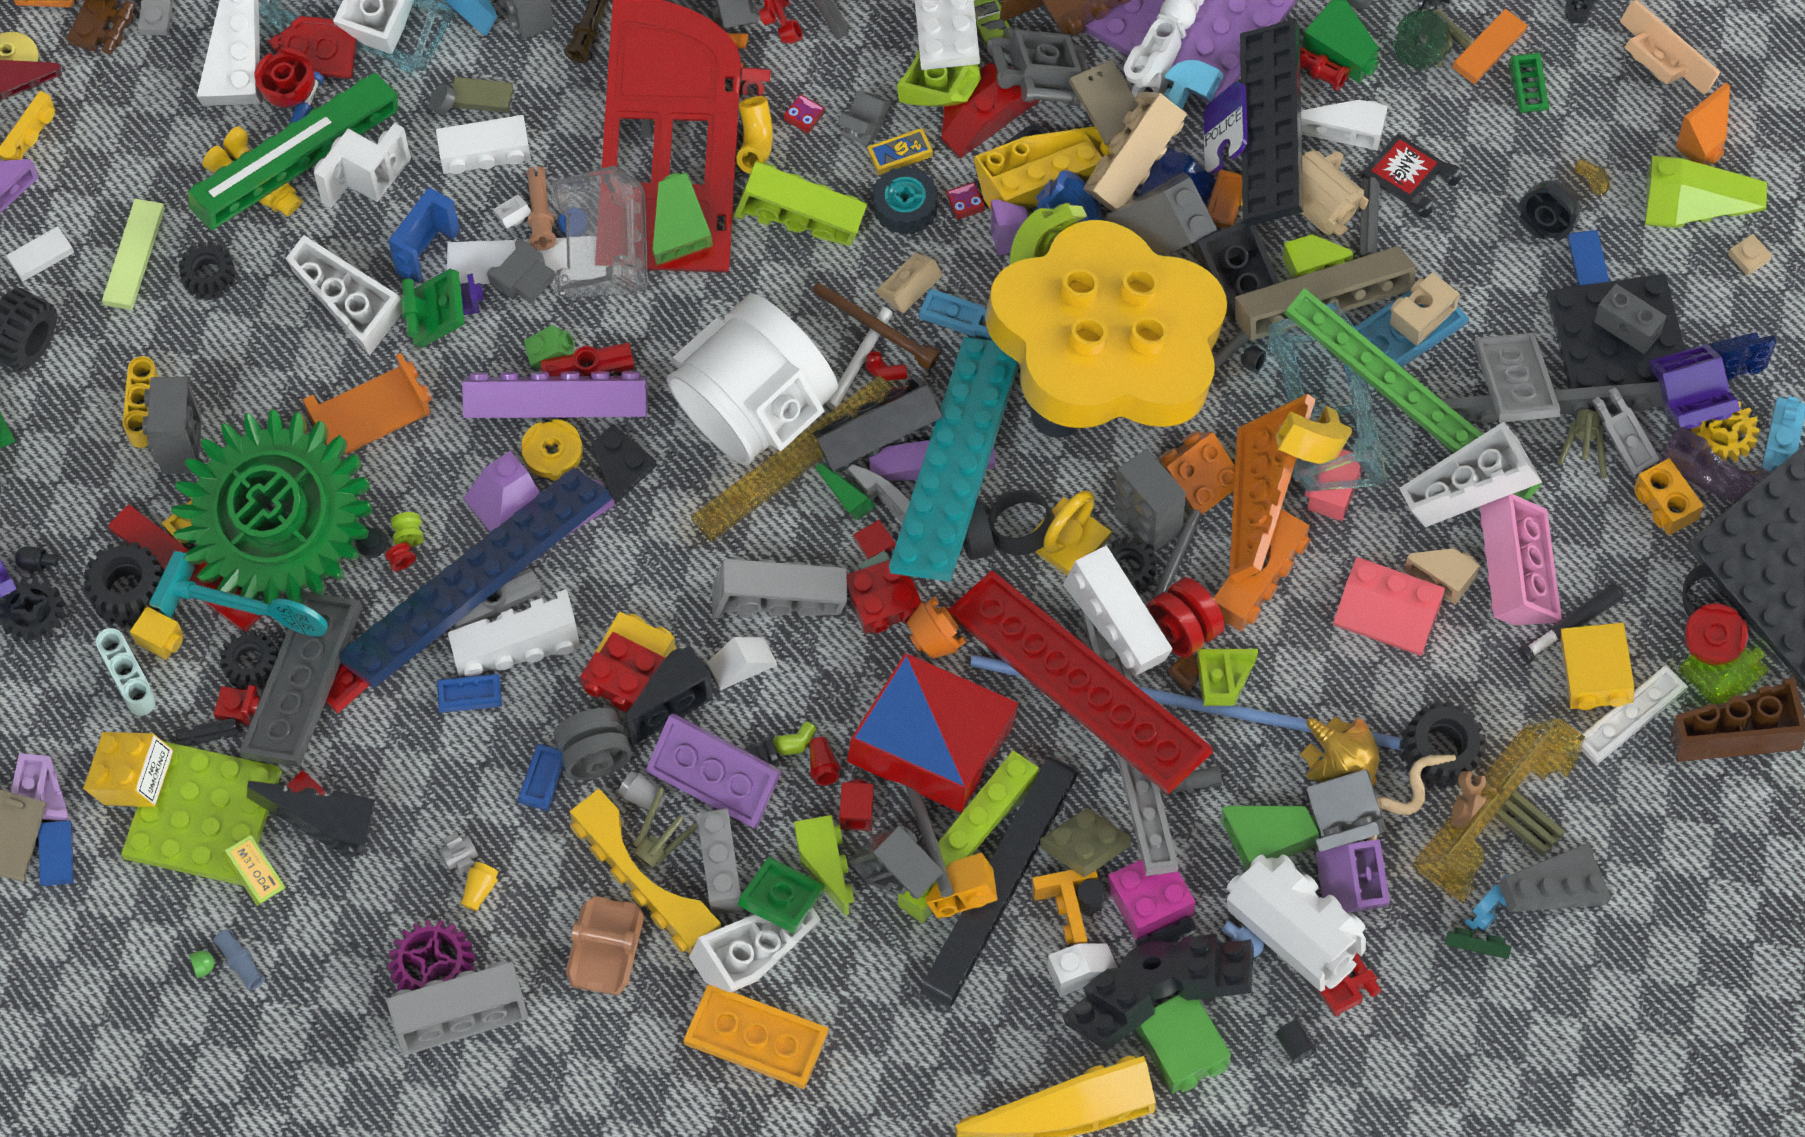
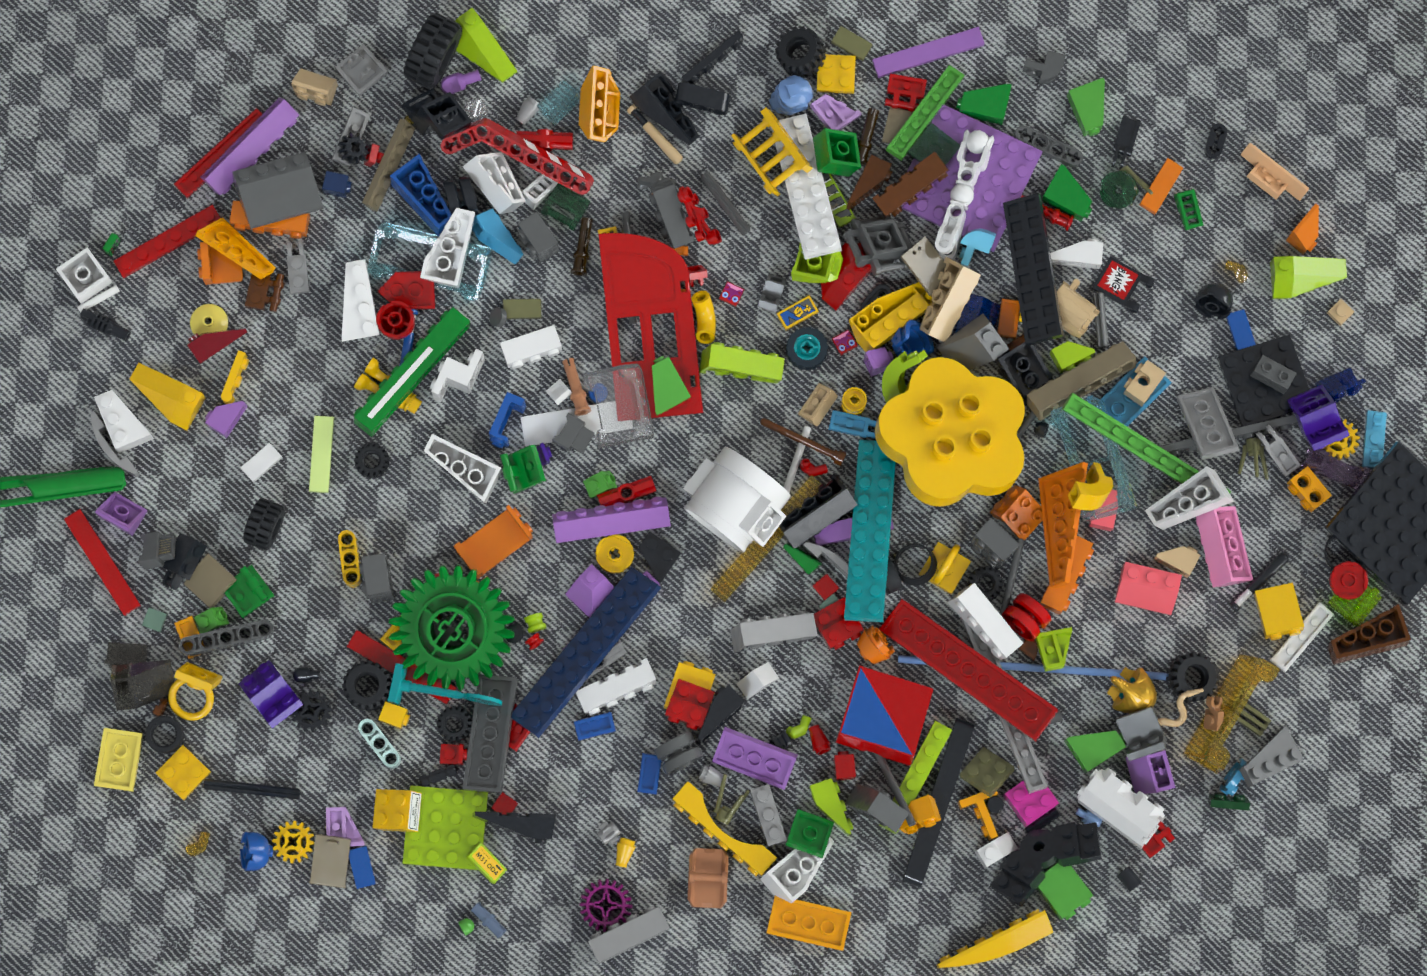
camera: 15 degrees left, 15 degrees up
(964, 277) = (854, 401): none -> yellow wheel
(1223, 123) = (1002, 270): piece -> none

